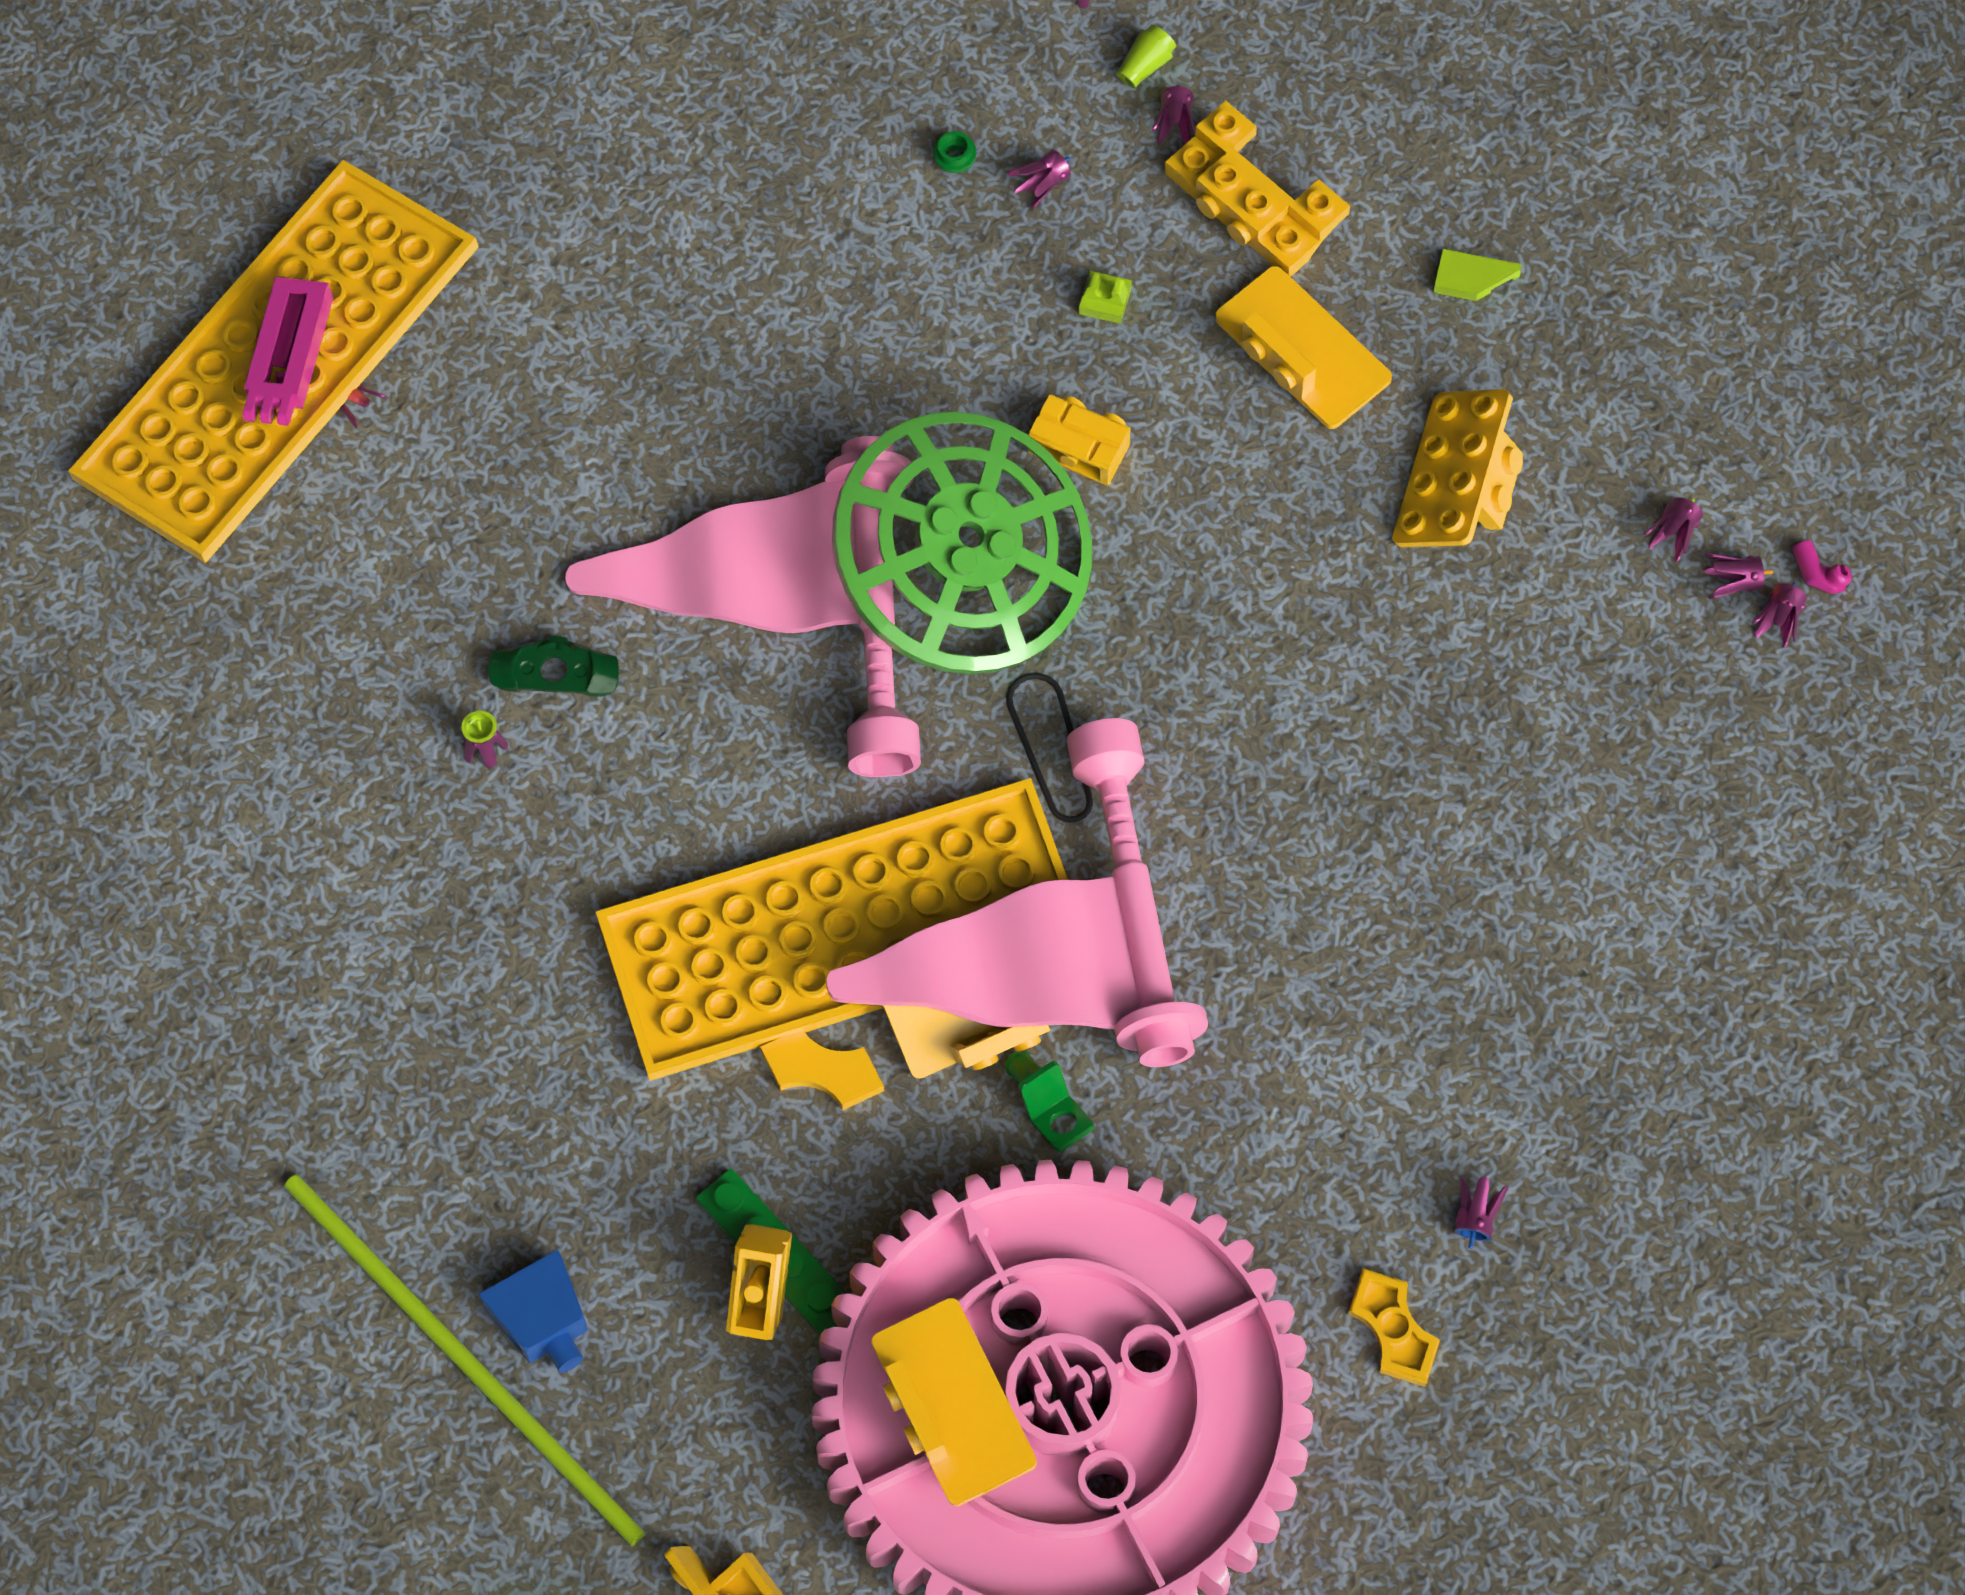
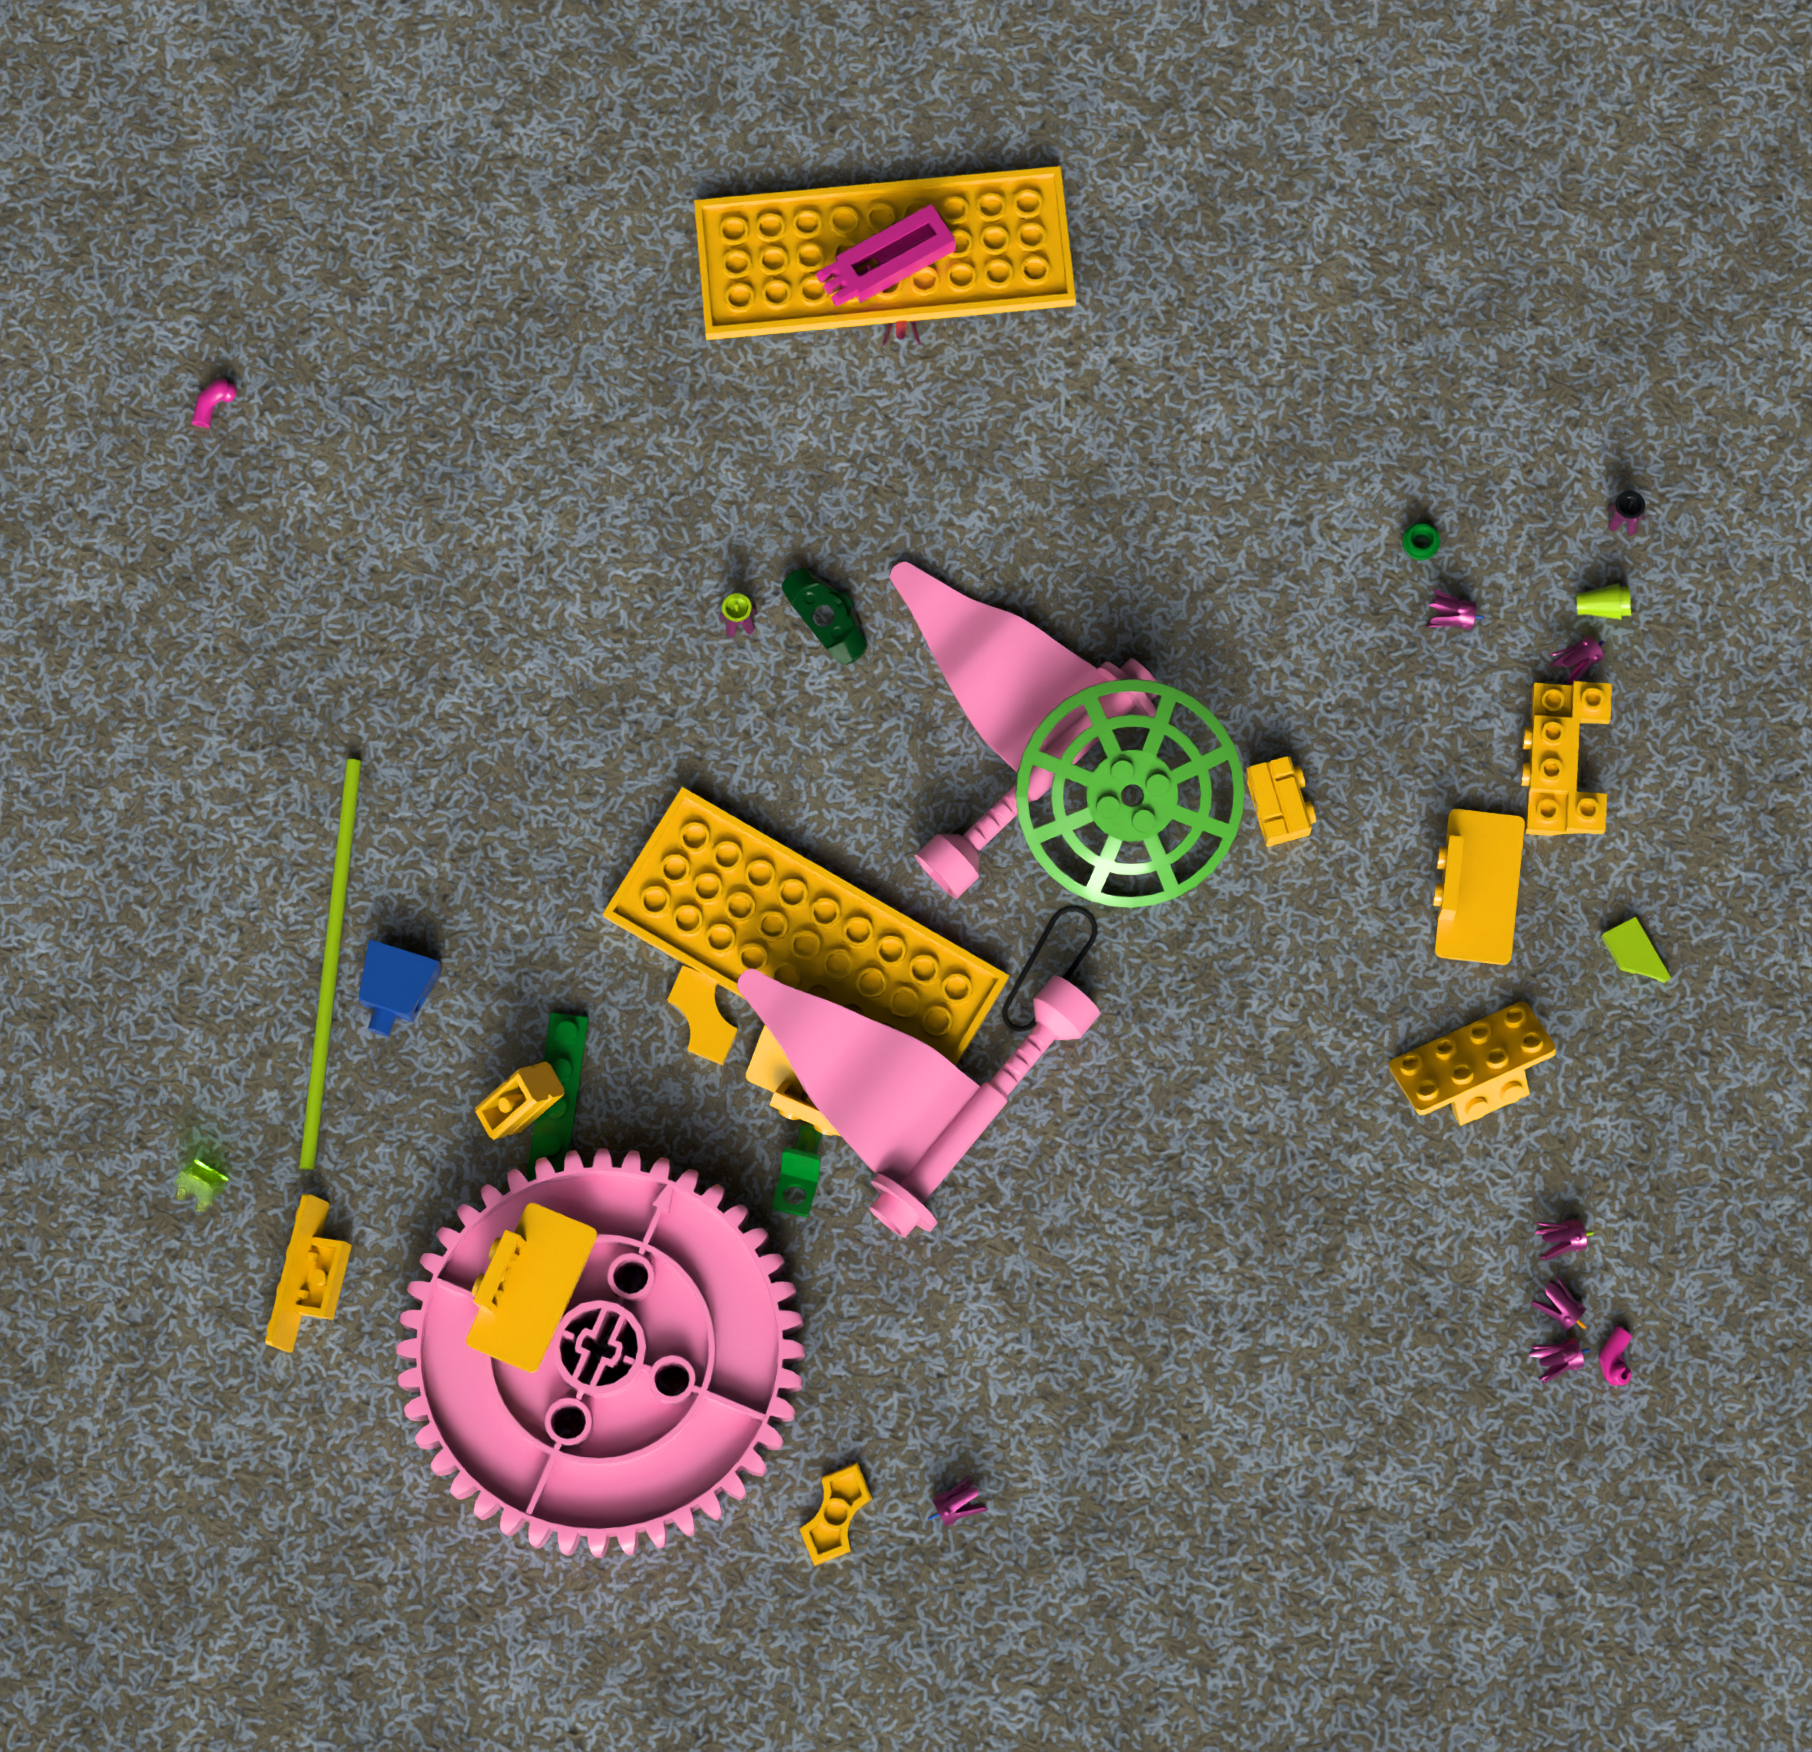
camera: 50 degrees right, 10 degrees up
(1105, 297) = (1402, 728): lime tile -> none

